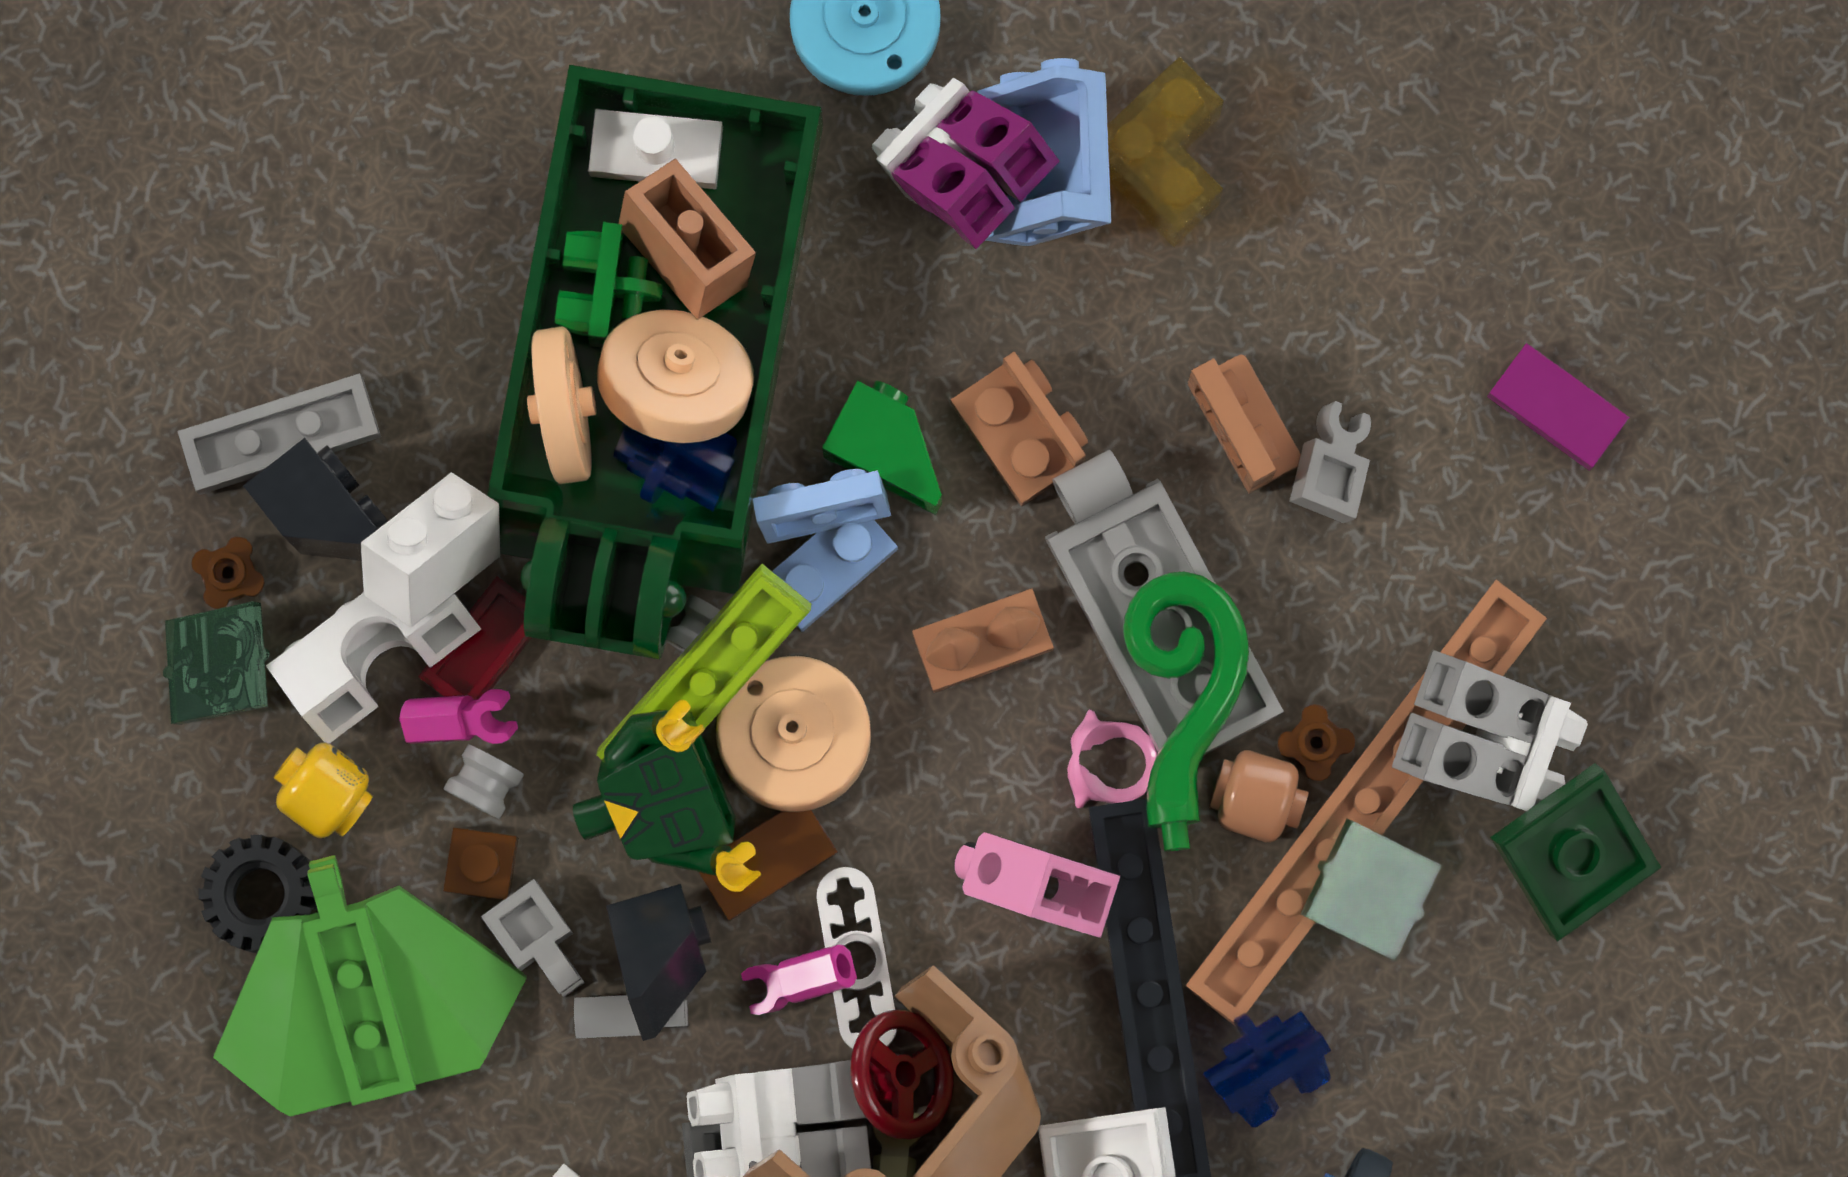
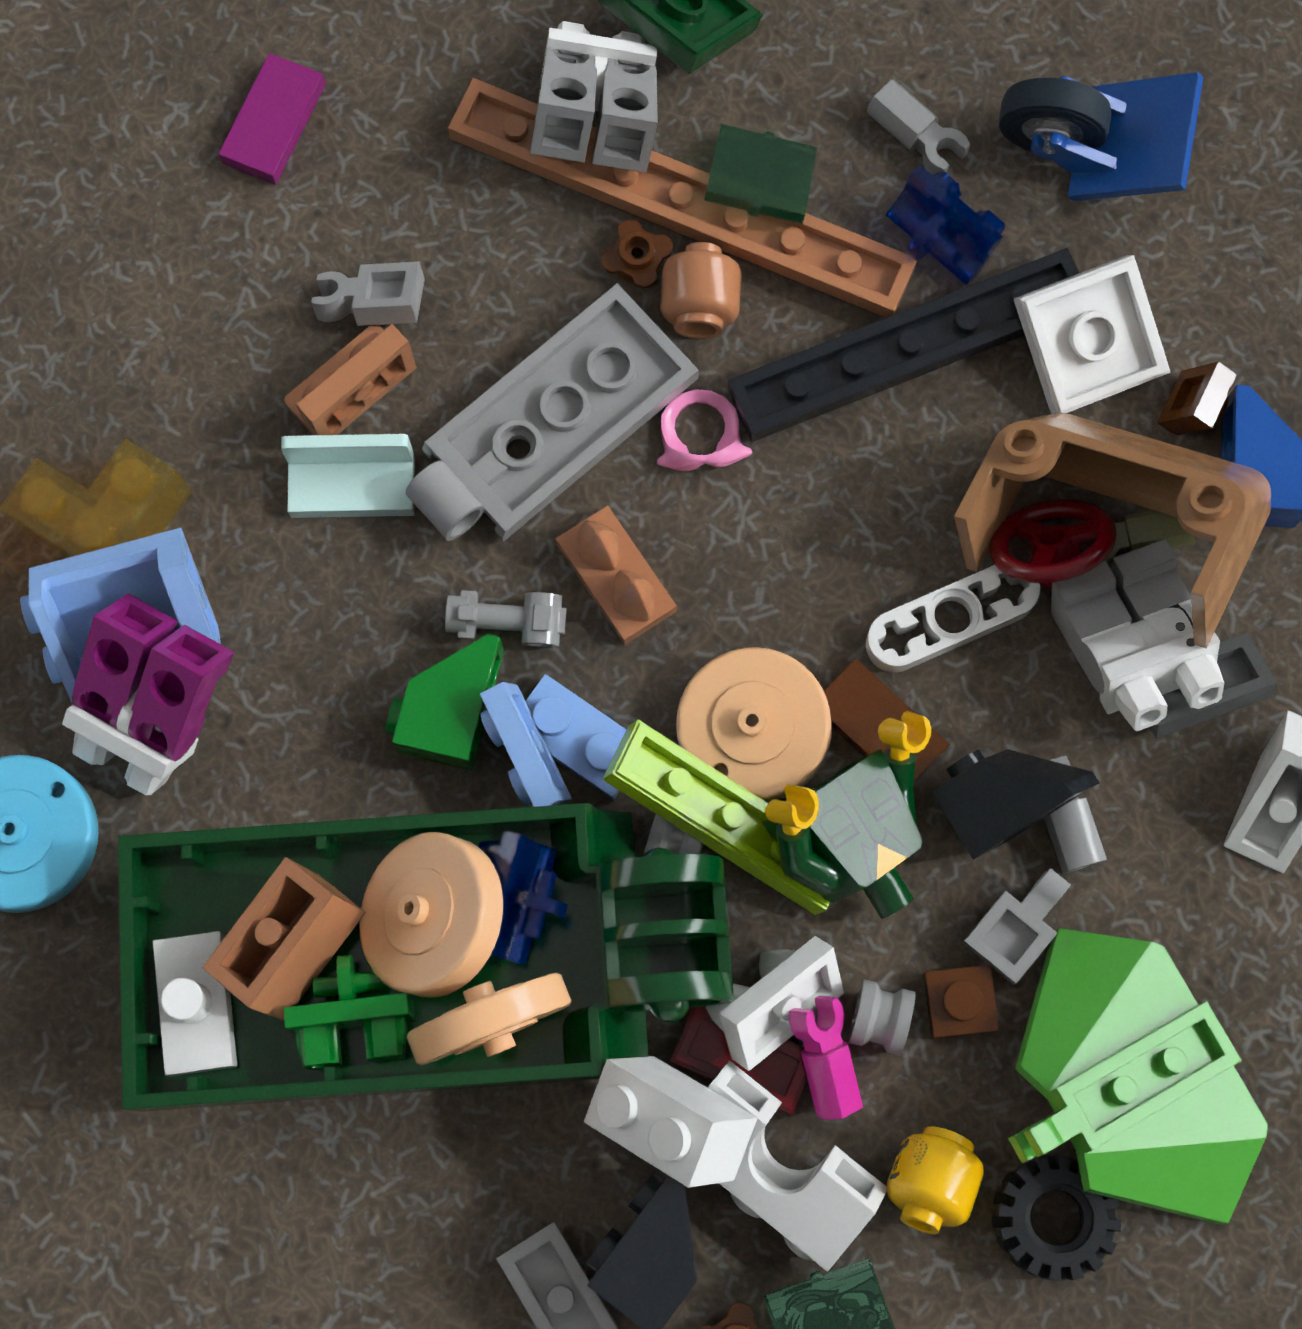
camera: 105 degrees left, 5 degrees down
(515, 664) = (760, 1014): none -> white tile
(803, 977) = (987, 657): dark pink bar -> none
(953, 553) = (539, 619): none -> light grey bar
(1018, 876) = (841, 461): bright pink torso -> none
(1020, 427) = (400, 585): nougat bracket -> none
(1142, 401) = (349, 475): none -> light aqua panel
(1173, 777) = (700, 359): green plant -> none
(1393, 1066) = (916, 126): none -> light grey bar

